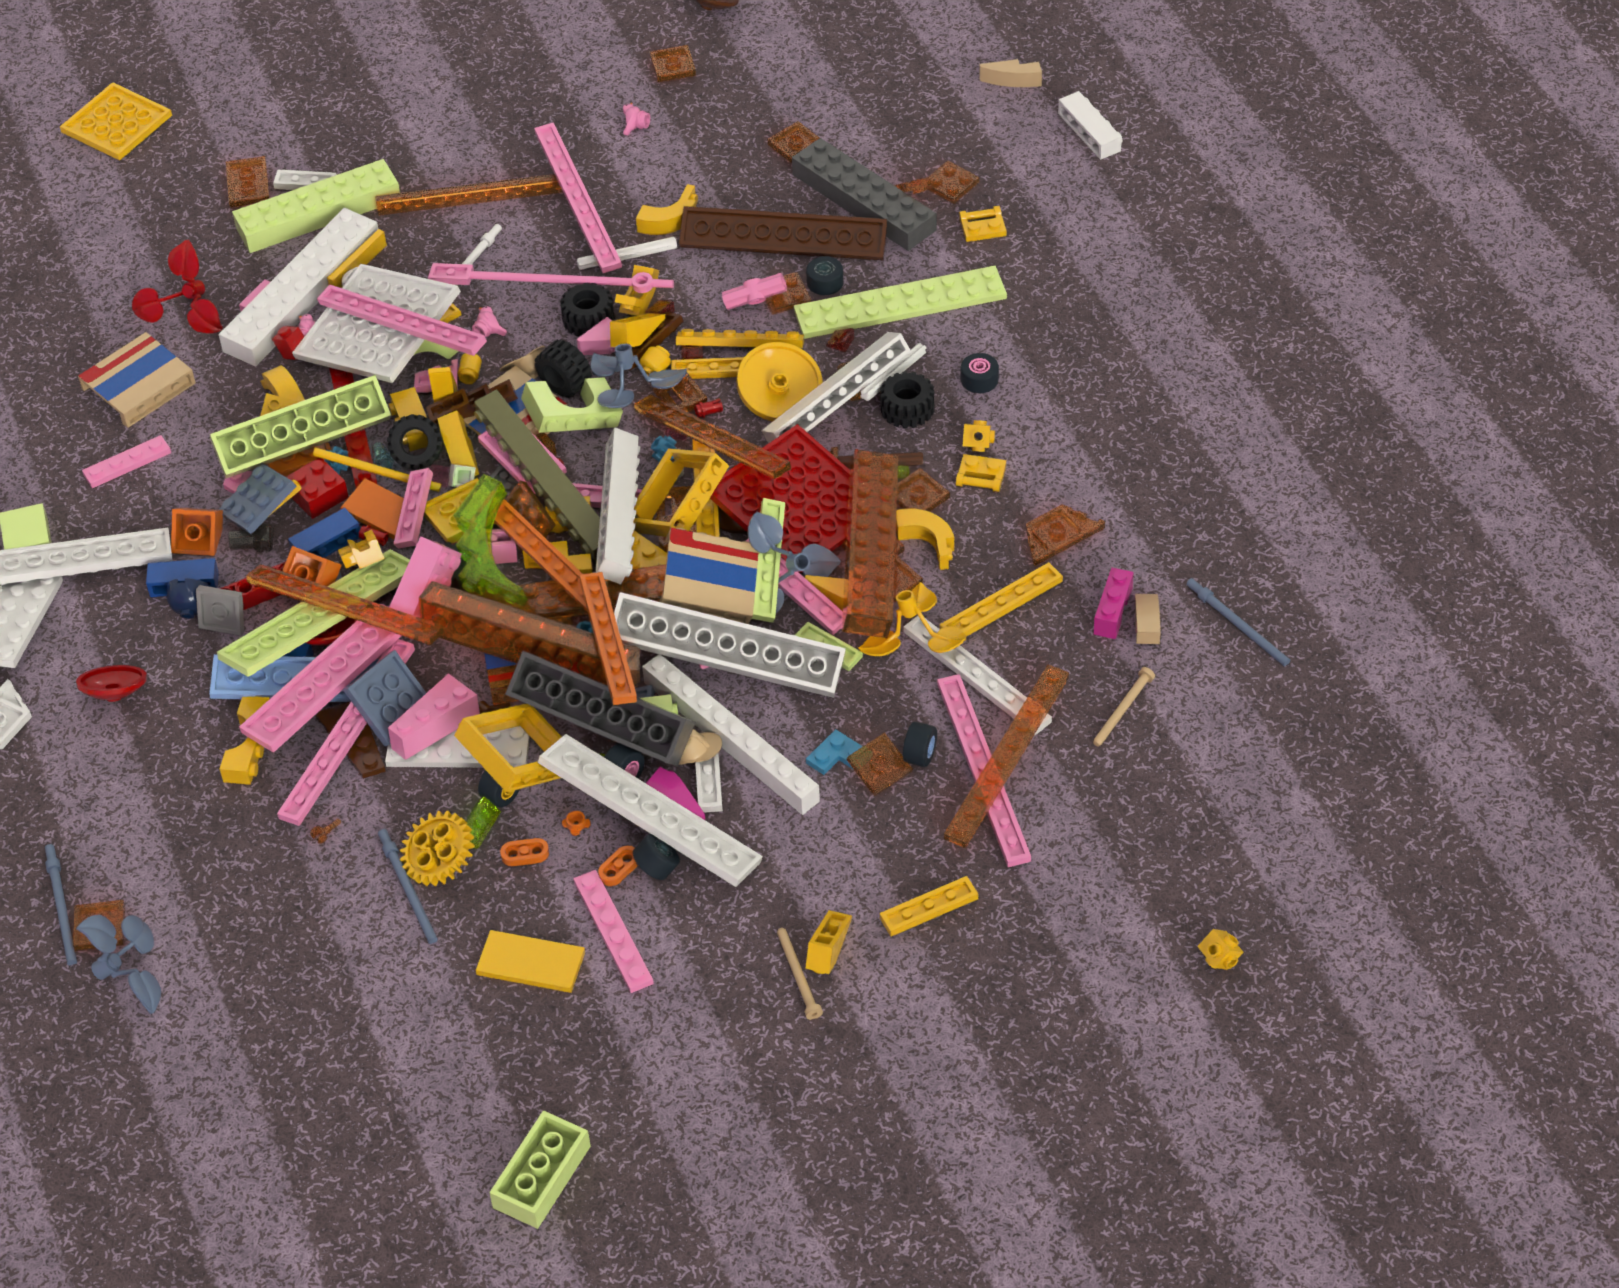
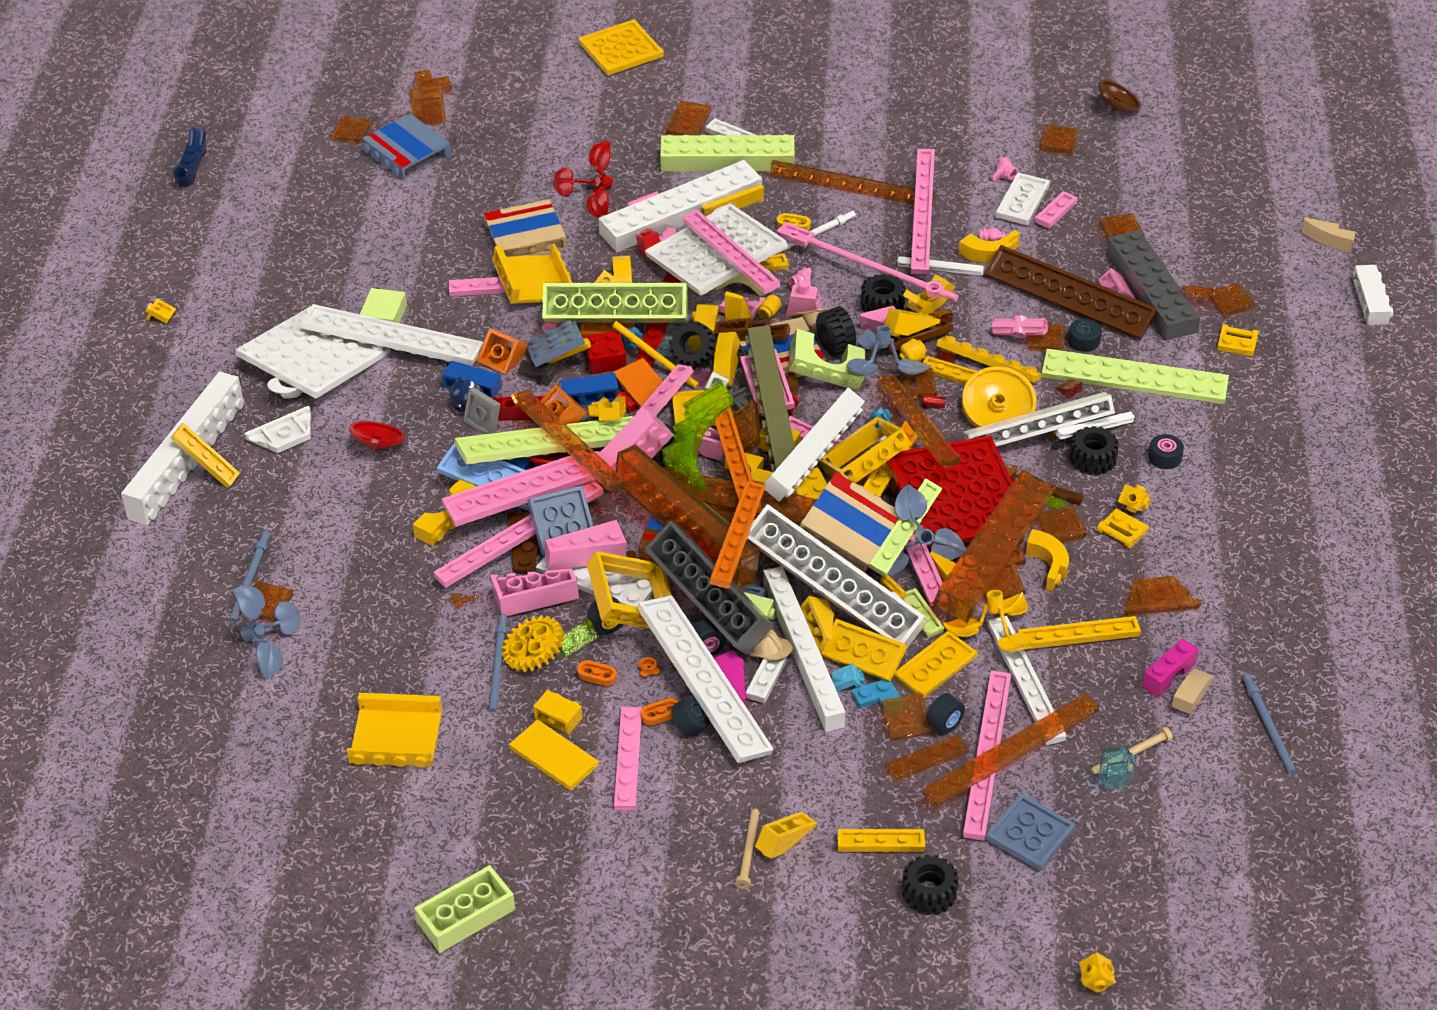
camera: 25 degrees right, 5 degrees down
(178, 430) = (525, 275): none -> yellow panel
(339, 1008) = (396, 730): none -> yellow panel
(401, 790) = (534, 591): none -> bright pink wedge
(445, 256) = (797, 220): none -> yellow plate
(503, 346) = (803, 299): none -> bright pink torso
(509, 912) = (558, 712): none -> yellow brick
(663, 198) = (991, 234): none -> bright pink animal
(672, 145) = (1022, 199): none -> white plate
(714, 145) = (1056, 210): none -> bright pink plate
(732, 696) = (819, 619): none -> yellow slope
(784, 628) = (892, 586): none -> yellow axle
(795, 710) = (865, 649): none -> yellow tile
(795, 746) = (847, 677): none -> medium azure bracket
(823, 205) = (1116, 282): none -> bright pink panel
(874, 696) = (935, 664): none -> yellow tile
(923, 799) = (926, 758): none -> clear orange plate
(1001, 946) = (930, 898): none -> black tyre
(1072, 833) = (1030, 832): none -> sand blue plate
(1122, 730) = (1116, 767): none -> clear light blue brick

